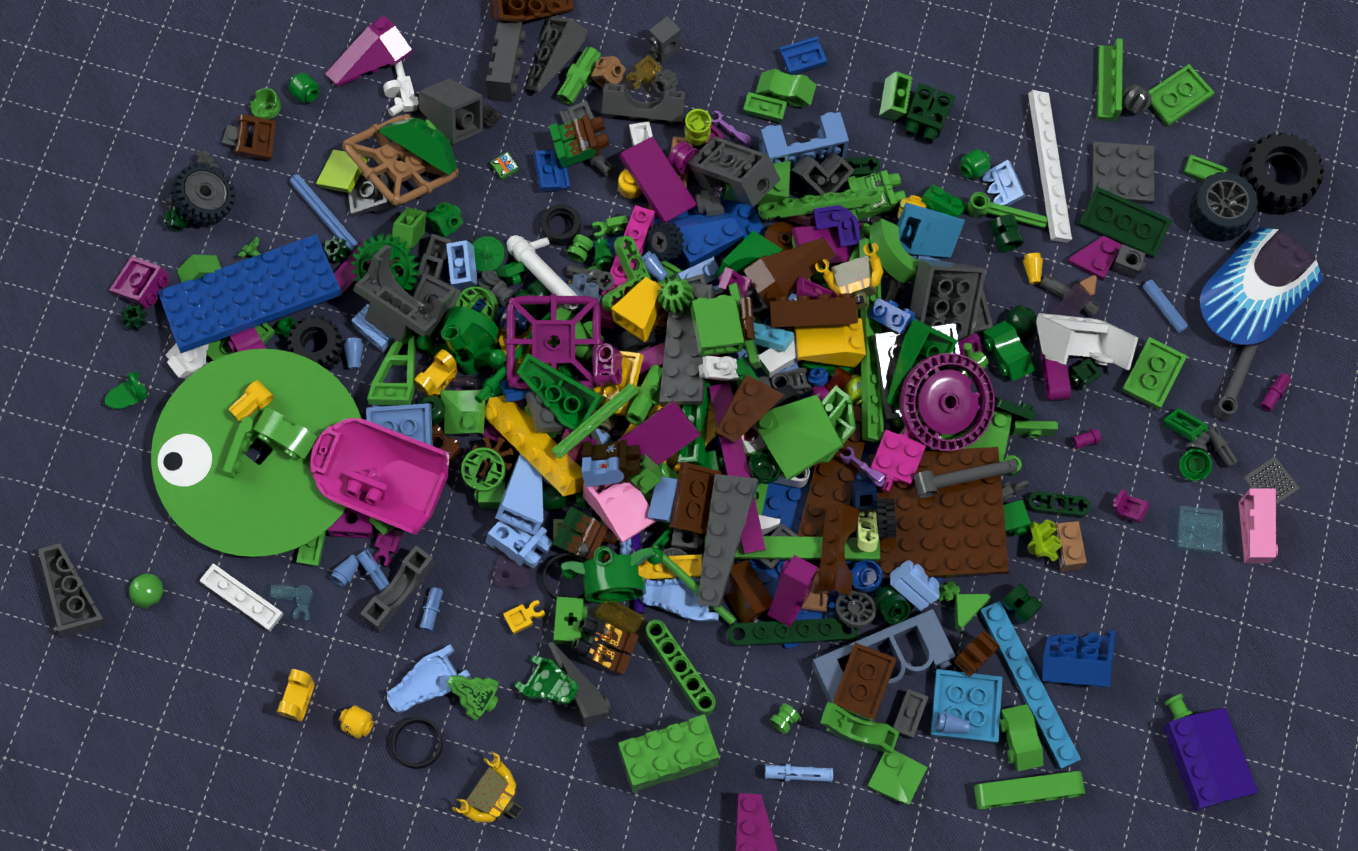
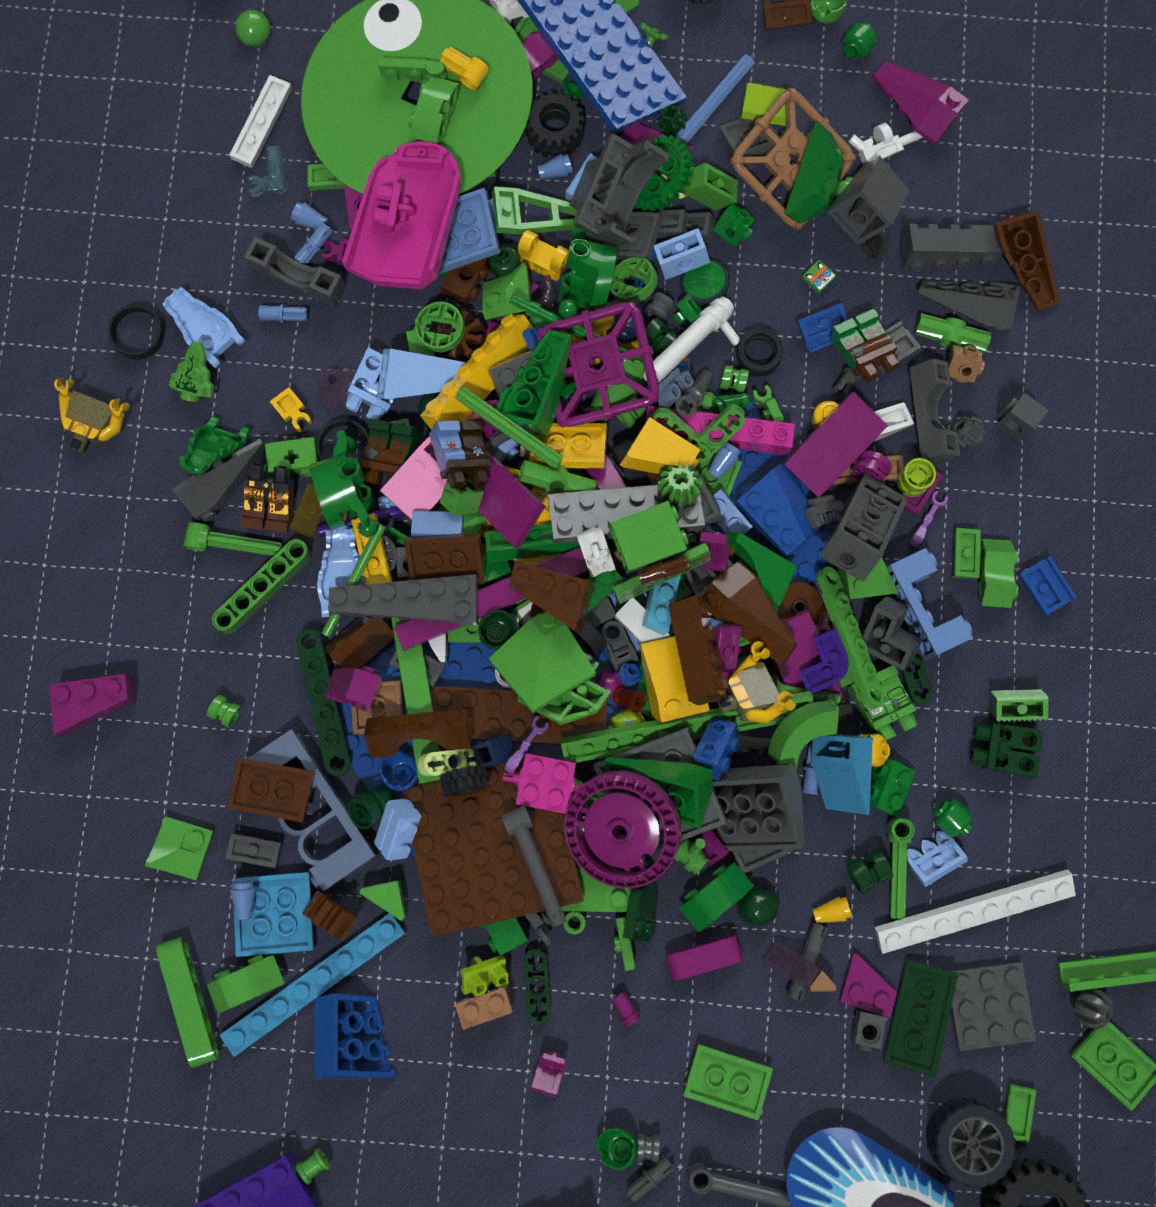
camera: 80 degrees right, 10 degrees up
(296, 696) = (158, 199): yellow piece -> none
(356, 722) = (147, 265): yellow head -> none
(488, 280) = (672, 288): dark grey wheel -> none
(609, 369) = (584, 430): magenta piece -> none
(625, 714) = (200, 537): none -> bright green axle
(644, 70) = (980, 407): clear yellow plate -> none
(665, 240) = (757, 466): black wheel -> none
(668, 754) = (154, 589): bright green piece -> none
(798, 773) = (165, 727): light blue pin -> none
(855, 609) = (358, 767): dark grey wheel -> none
(857, 730) = (217, 819): bright green arch -> none
(948, 591) = (404, 870): bright green plant -> none
(1027, 609) = (403, 960): dark green wheel -> none
(1084, 337) = (752, 982): white windscreen -> none
(1084, 374) = (707, 994): dark green bracket -> none
(1165, 306) = (821, 1084): medium blue axle -> none
(1182, 426) = (655, 1144): green tile -> none
(1200, 529) = (537, 1165): clear light blue plate -> none

